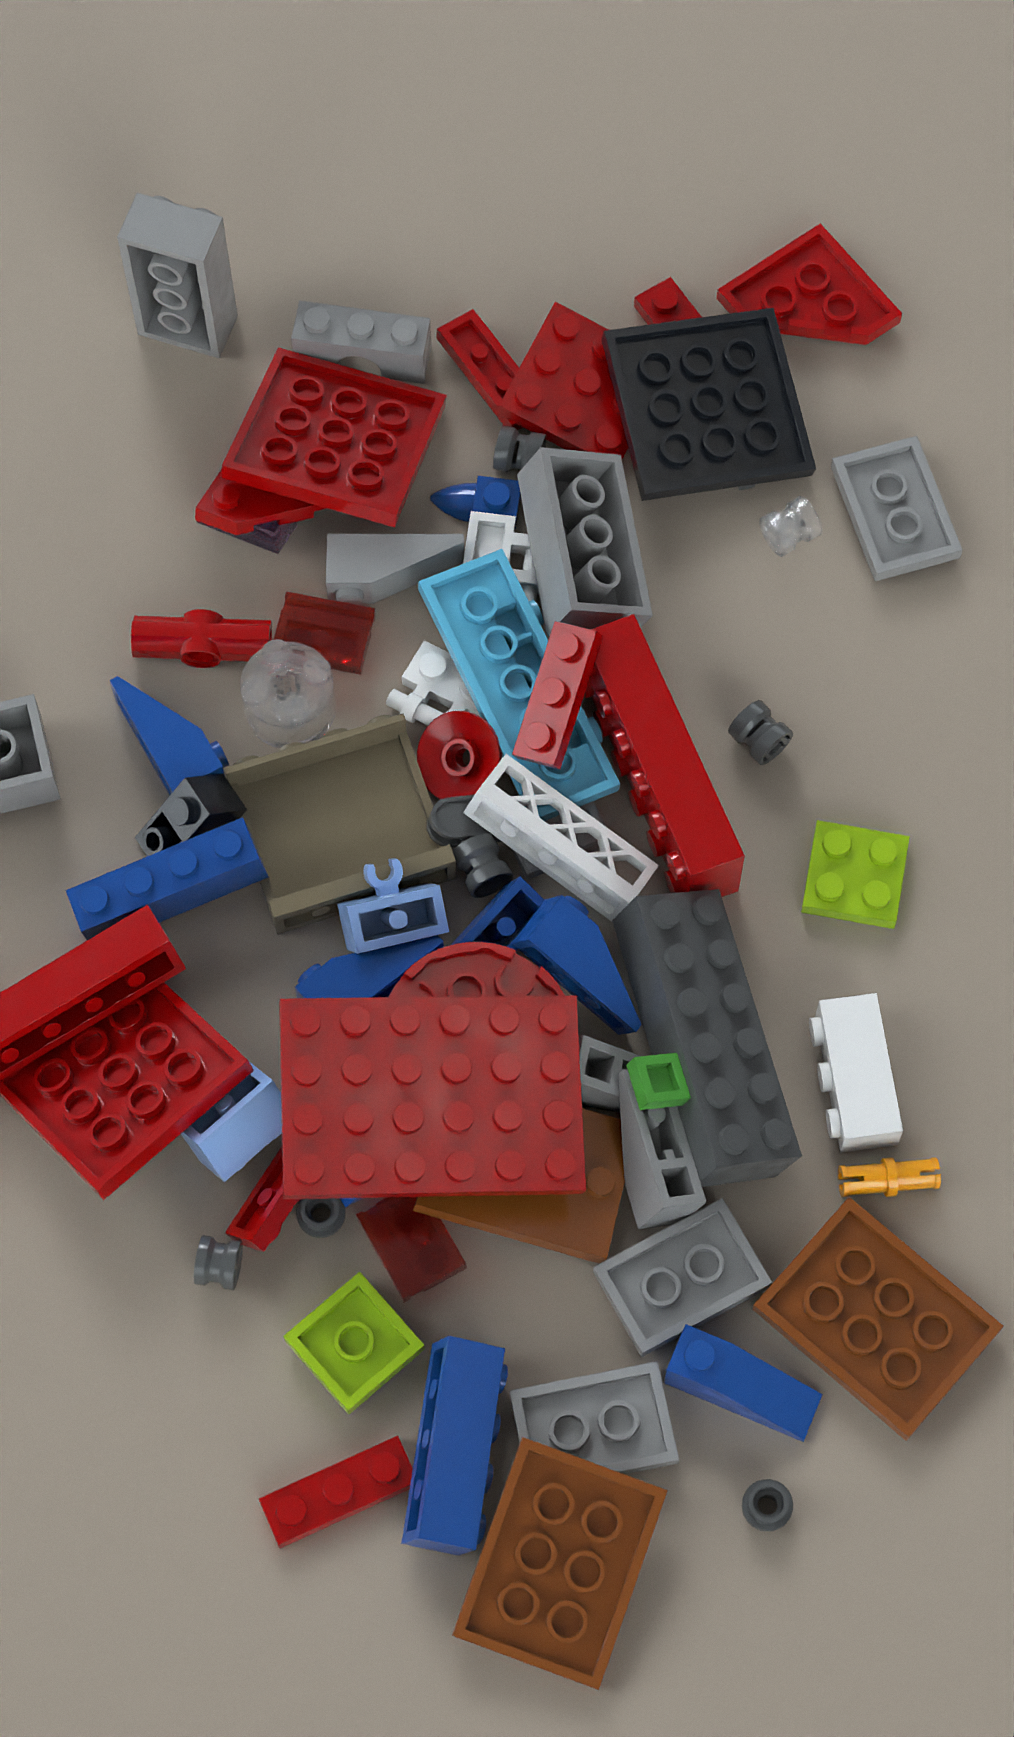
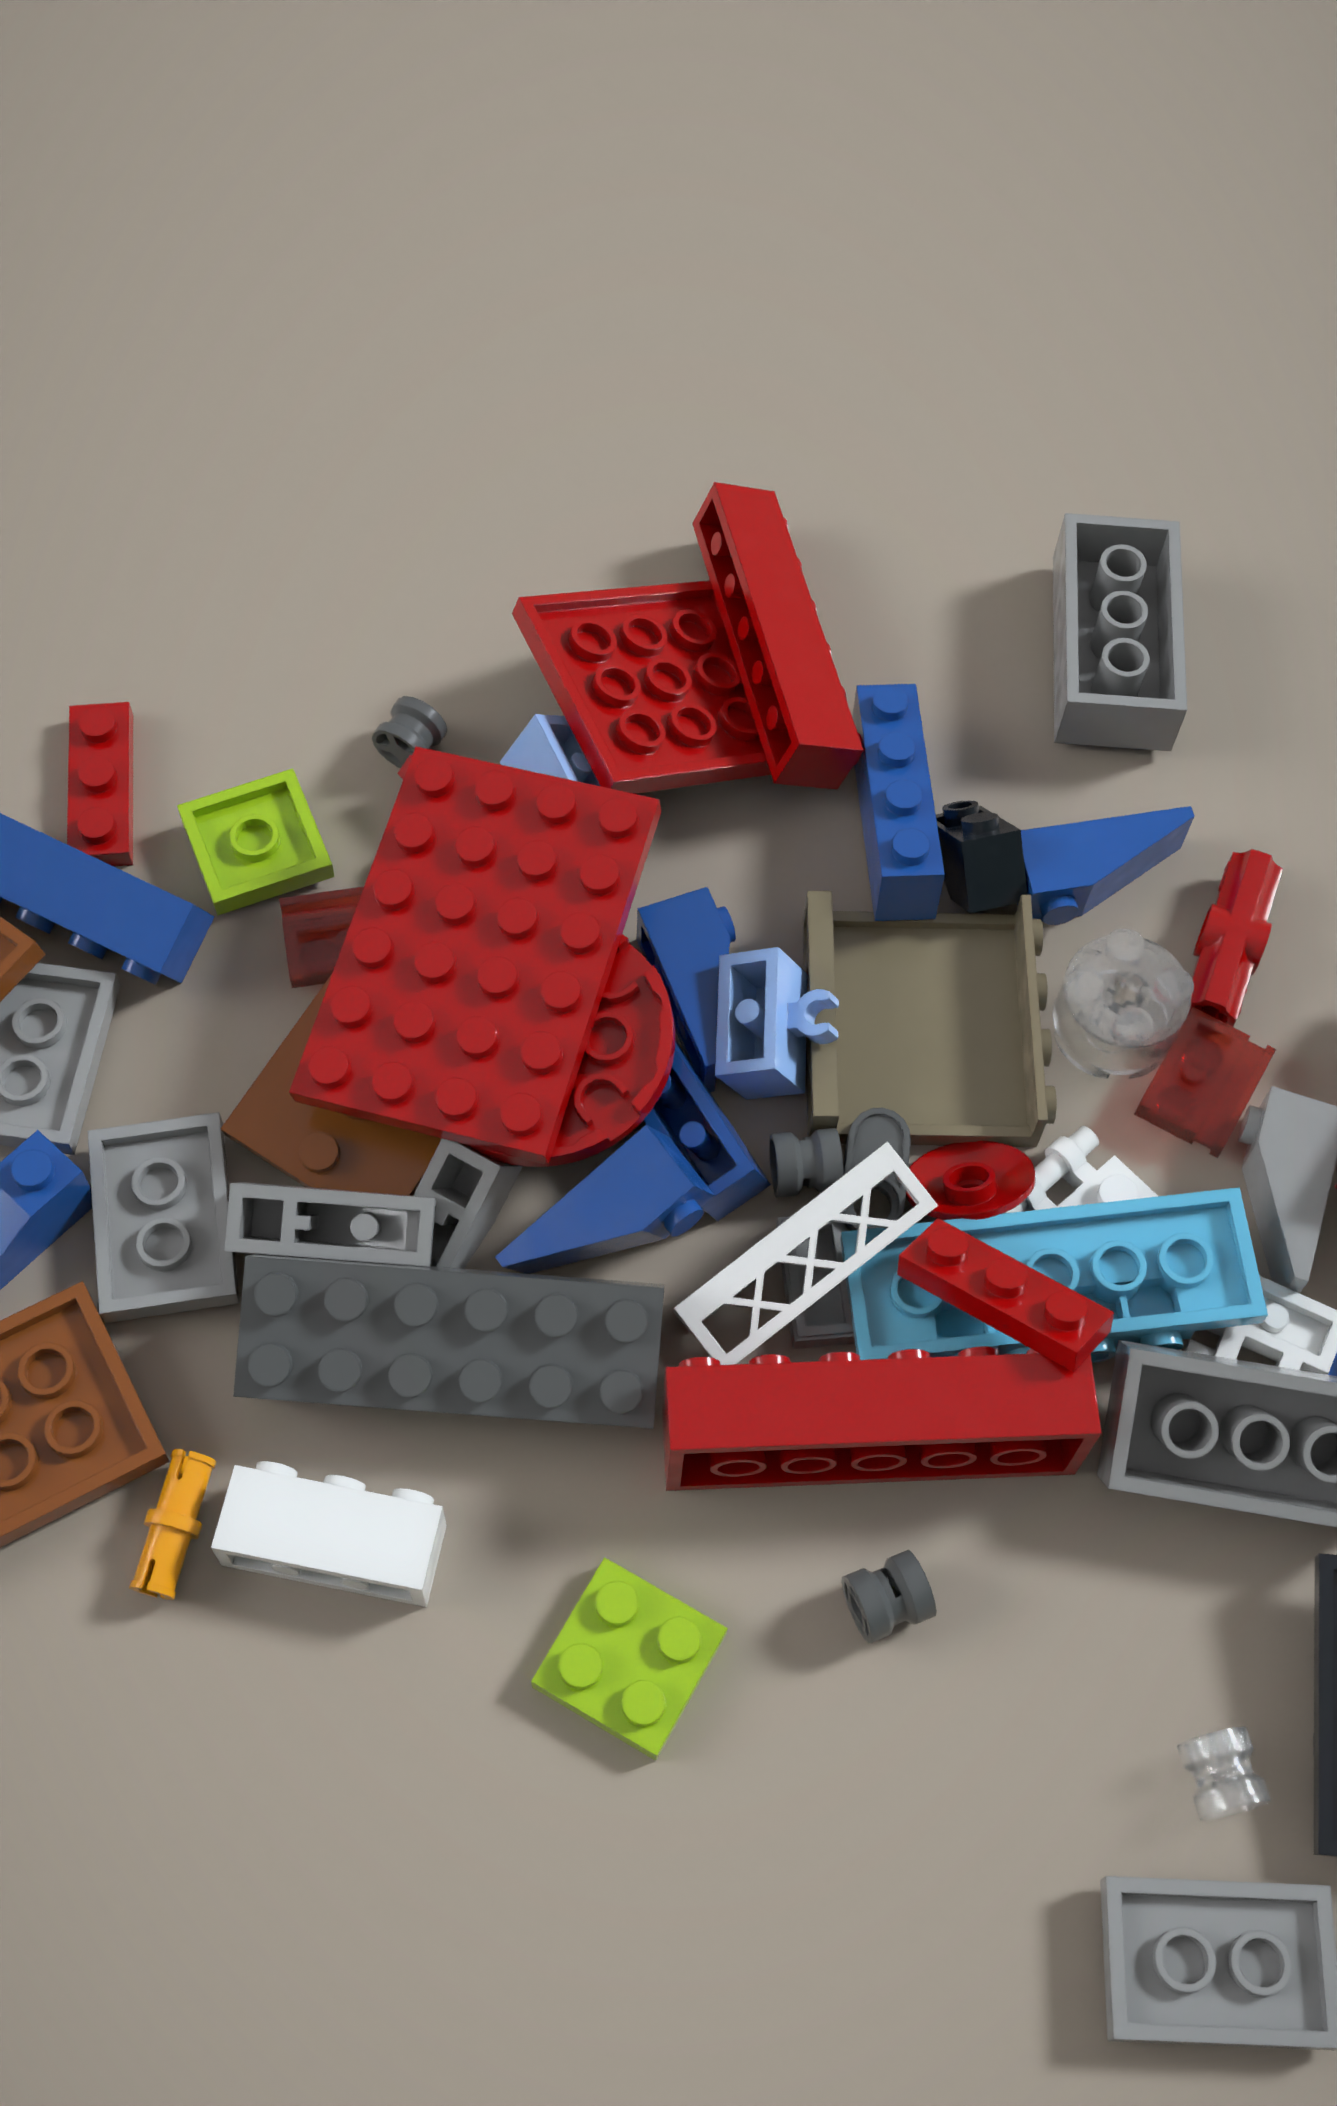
camera: 105 degrees right, 5 degrees down
(658, 1081) = (396, 1230): bright green plate -> none

